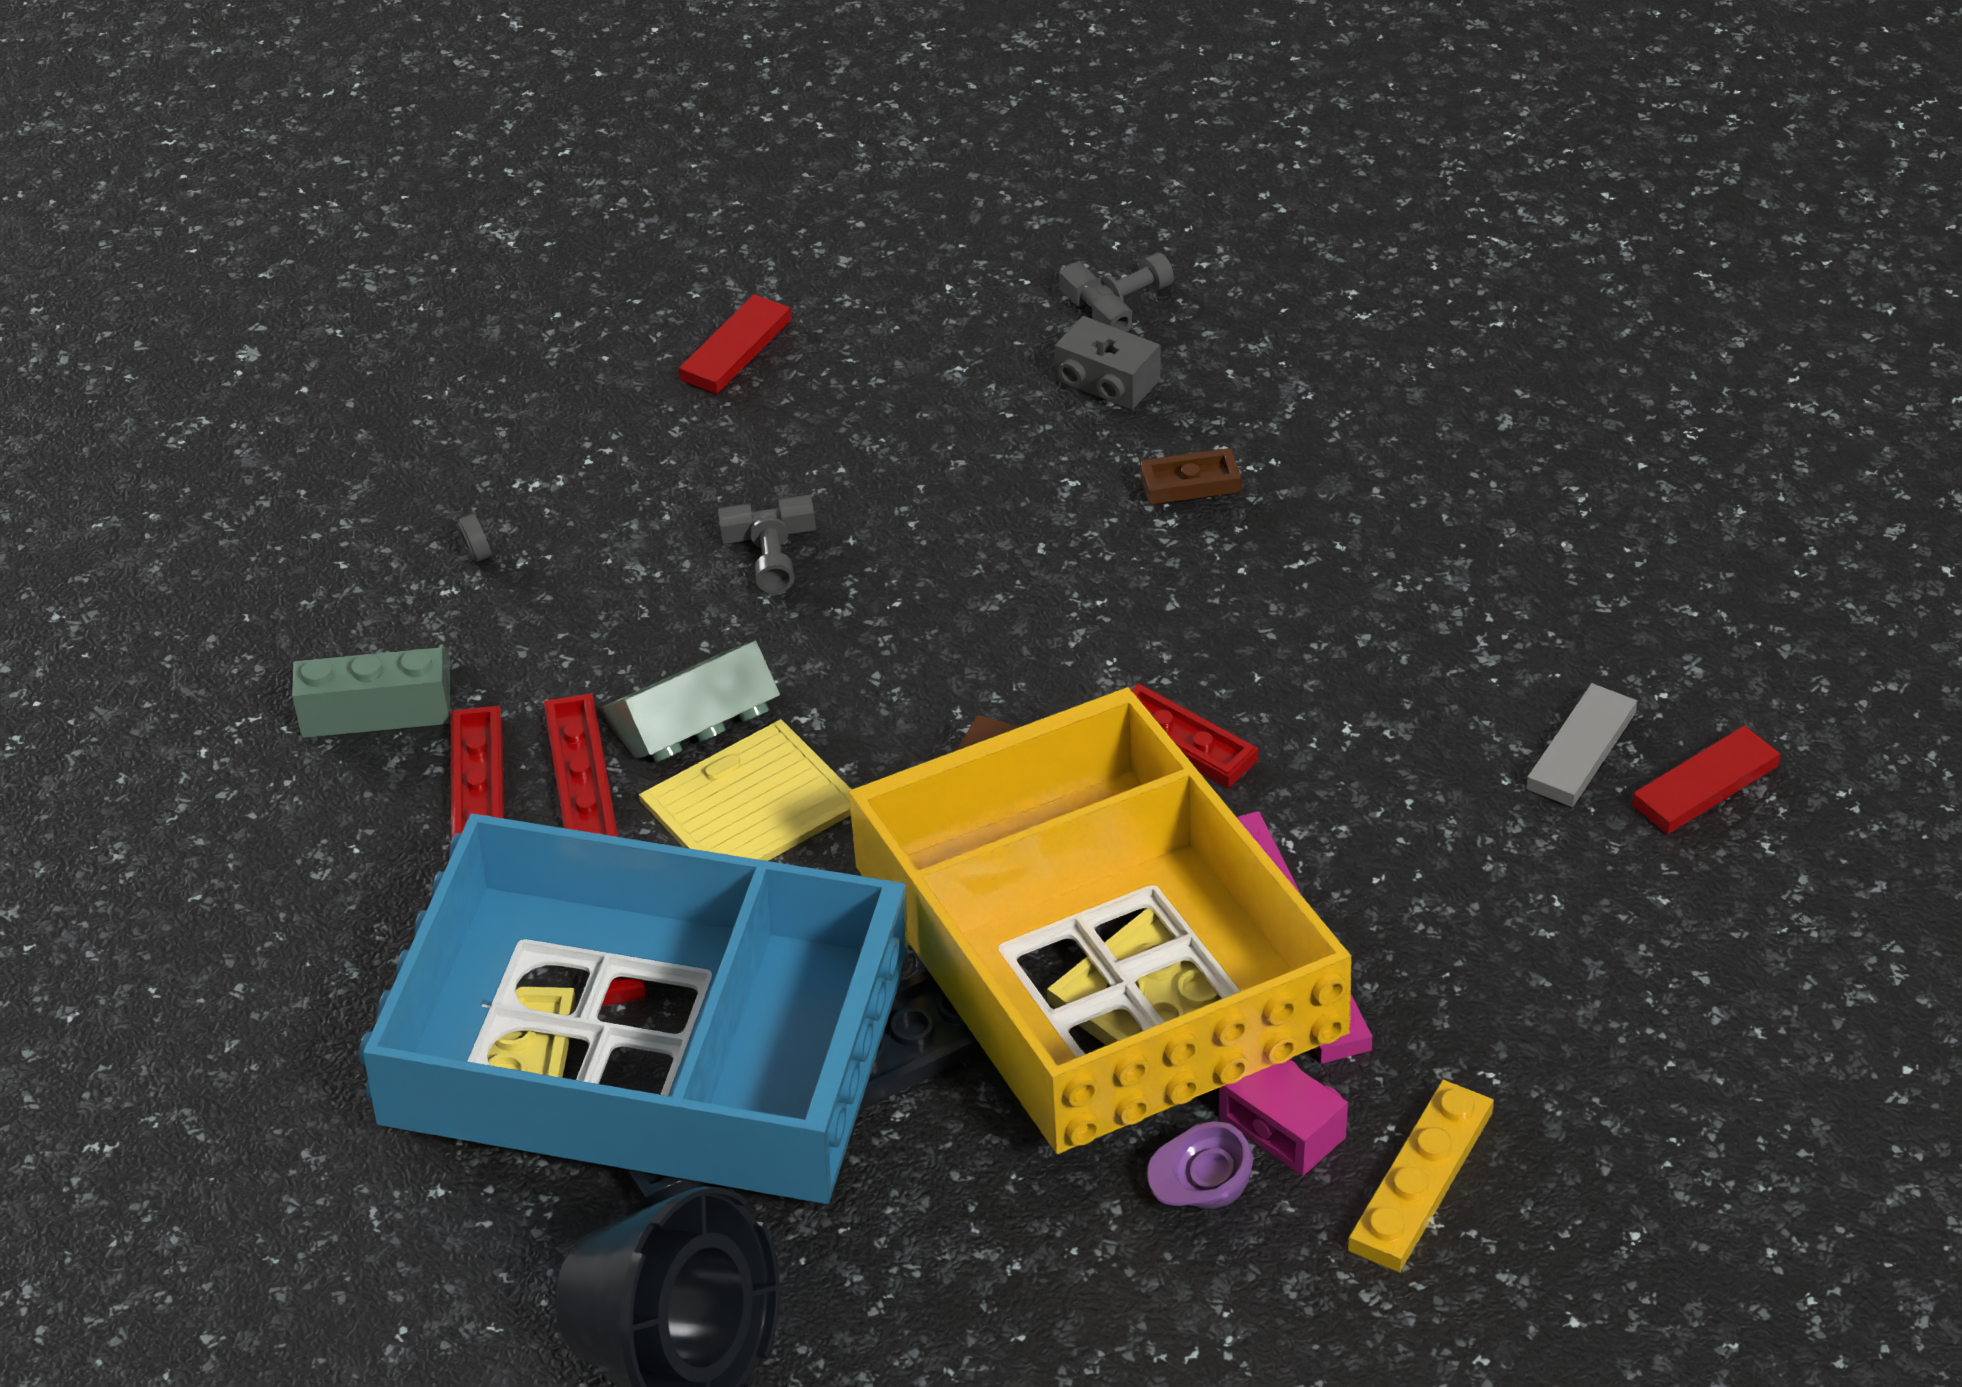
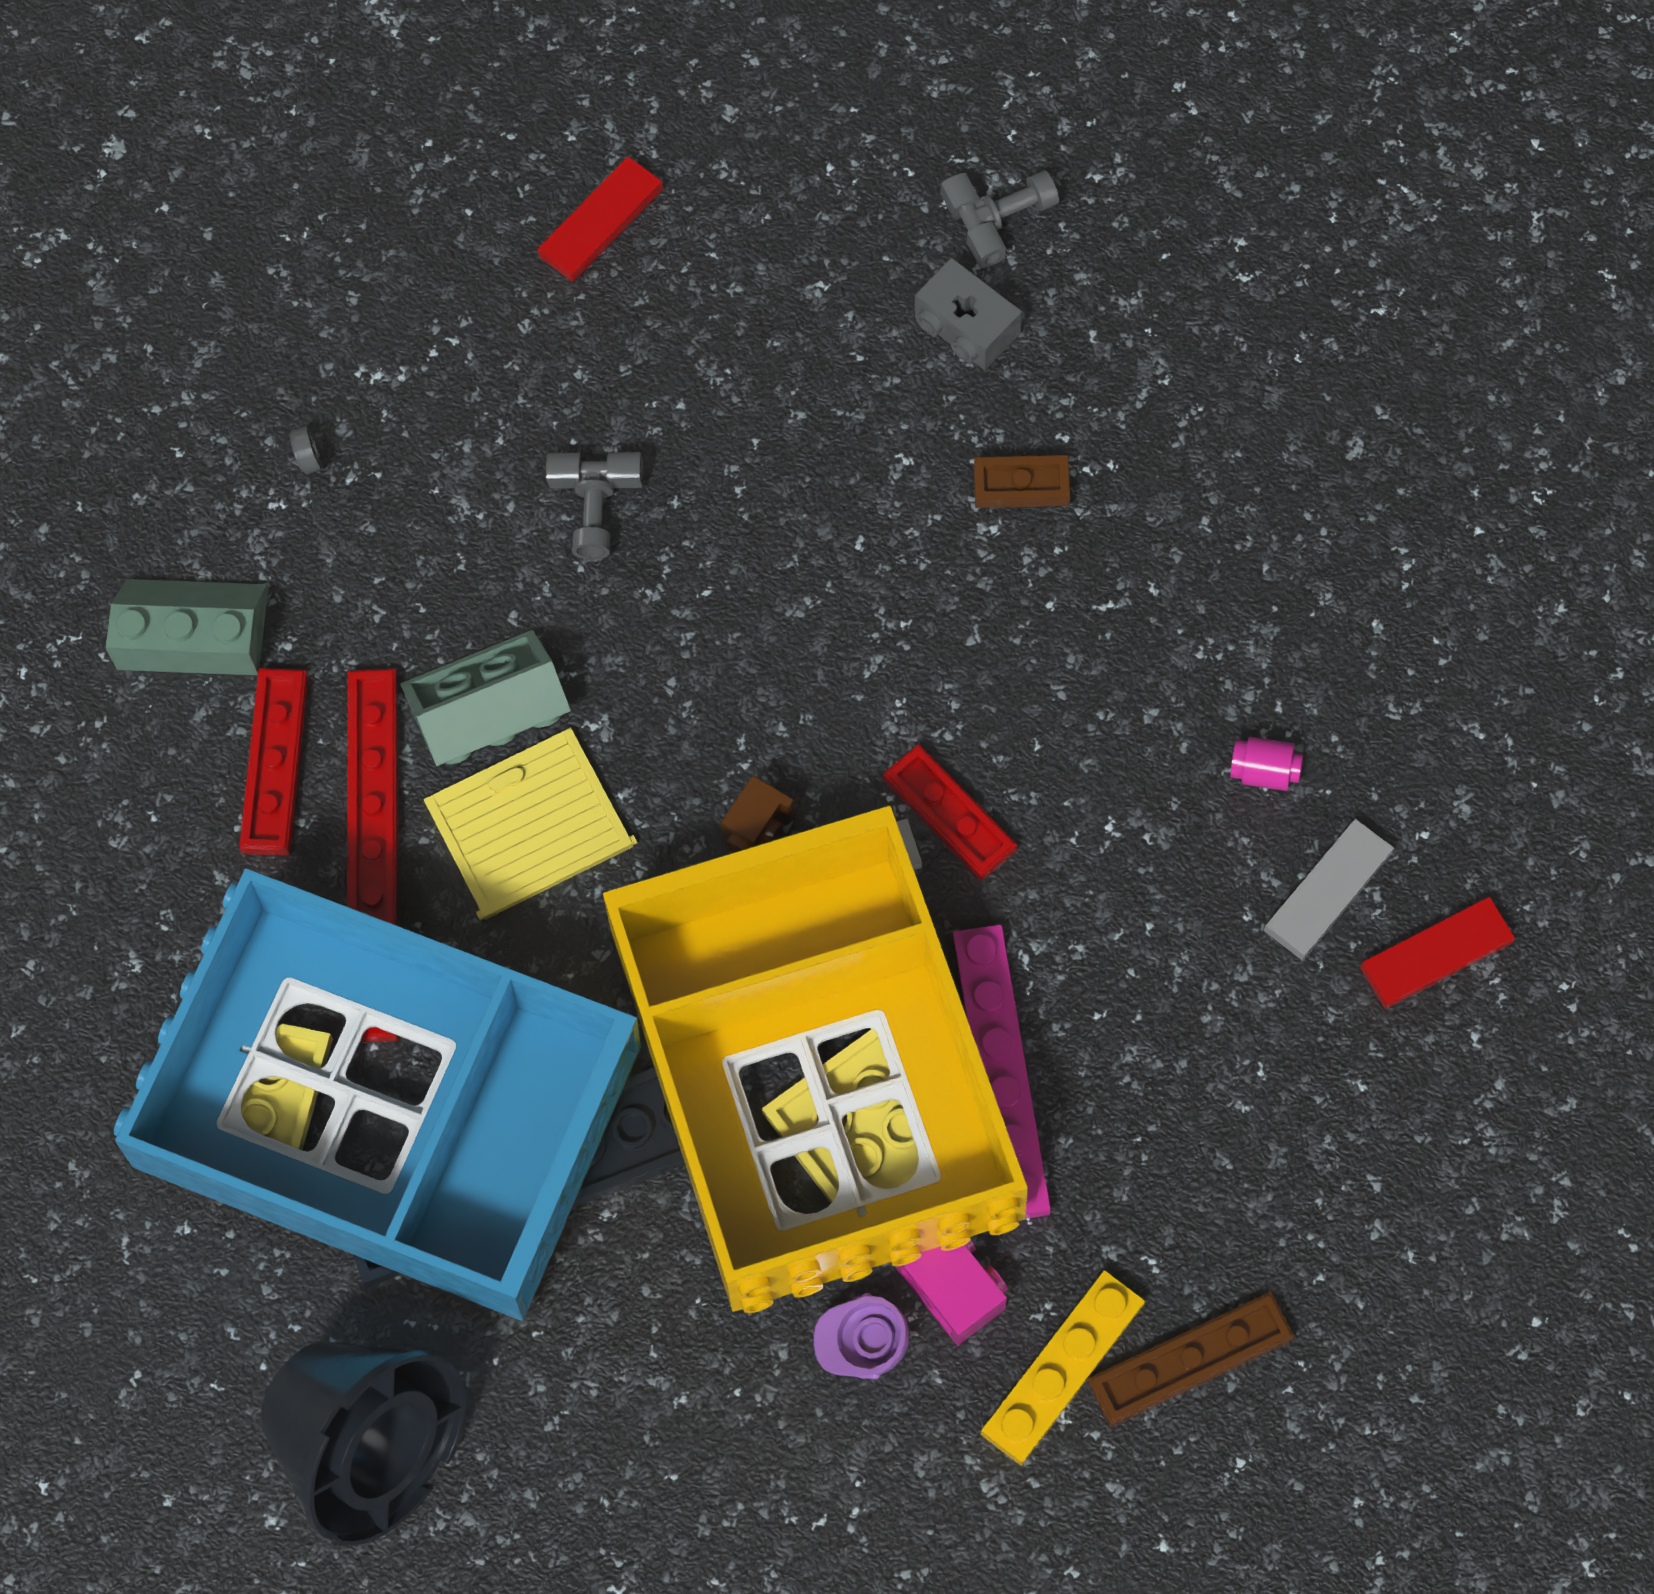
camera: 10 degrees right, 25 degrees up
(1490, 651) = (1266, 763): none -> dark pink brick
(1554, 1149) = (1190, 1359): none -> reddish brown tile

